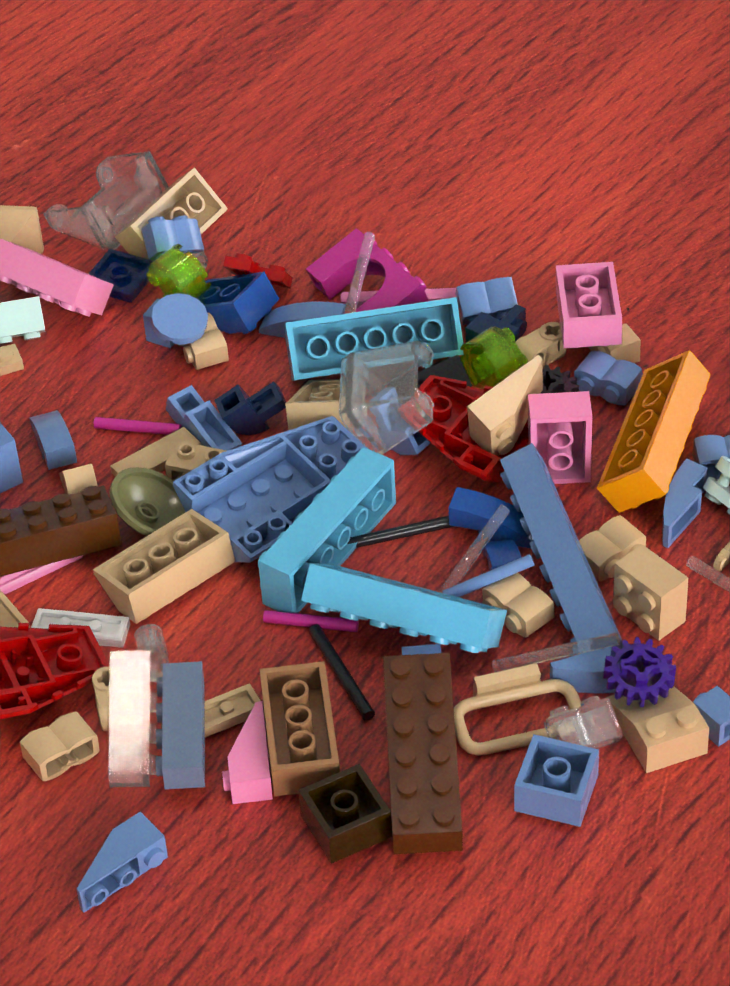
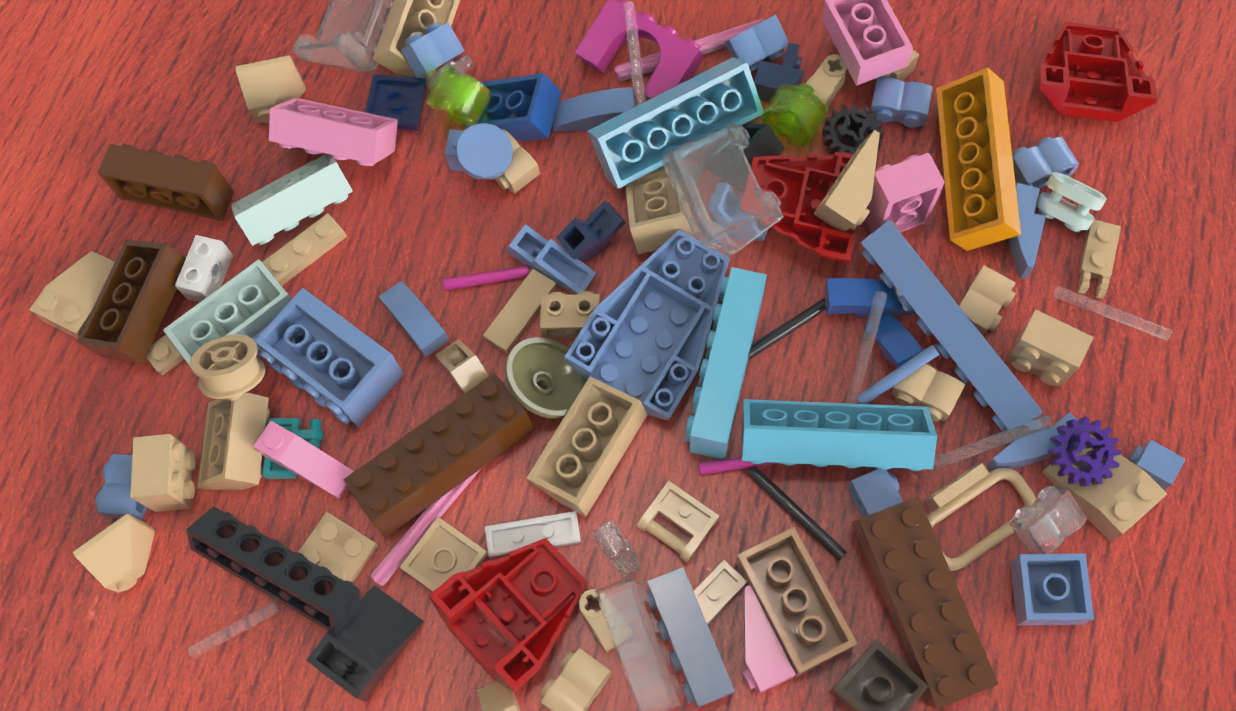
camera: 15 degrees left, 25 degrees up
(229, 640) = (683, 512): none -> tan plate
(243, 264) = (519, 66): red plate -> none

